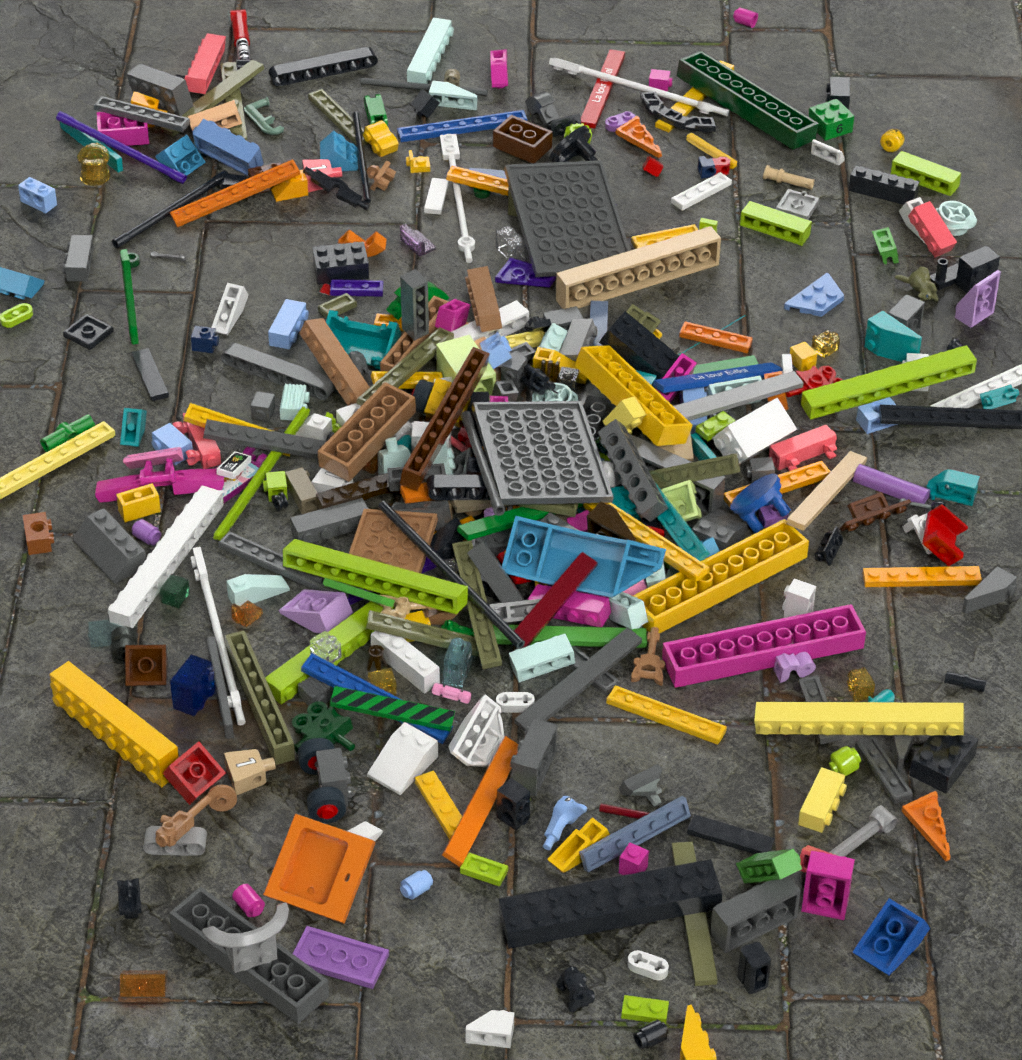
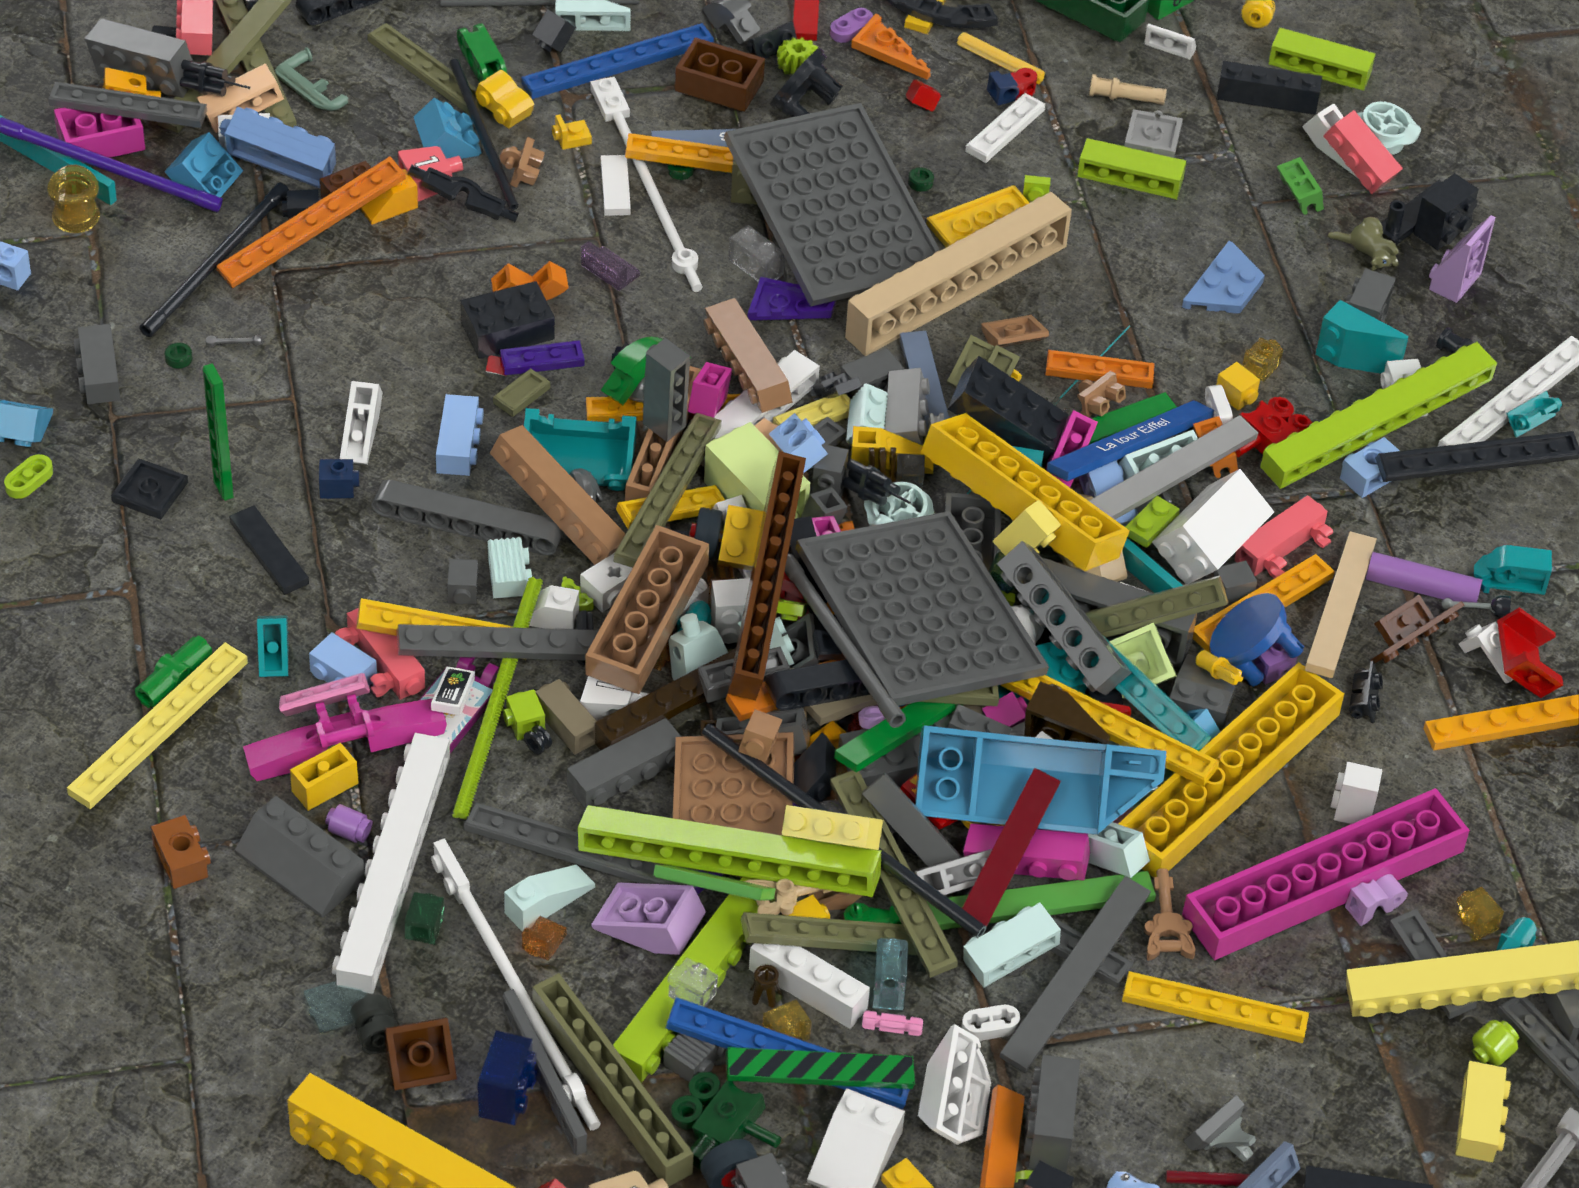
camera: 15 degrees left, 5 degrees up
(195, 104) = (206, 78): none -> black piece
(412, 510) = (760, 735): none -> medium nougat brick
(441, 568) = (832, 827): none -> light yellow brick
(459, 445) = (791, 610): none -> lime plate
(635, 214) = (920, 179): none -> dark green tile
(666, 309) = (1014, 331): none -> medium nougat slope
(707, 351) = (1097, 395): none -> medium nougat hips
(730, 515) = (1219, 667): none -> yellow axle

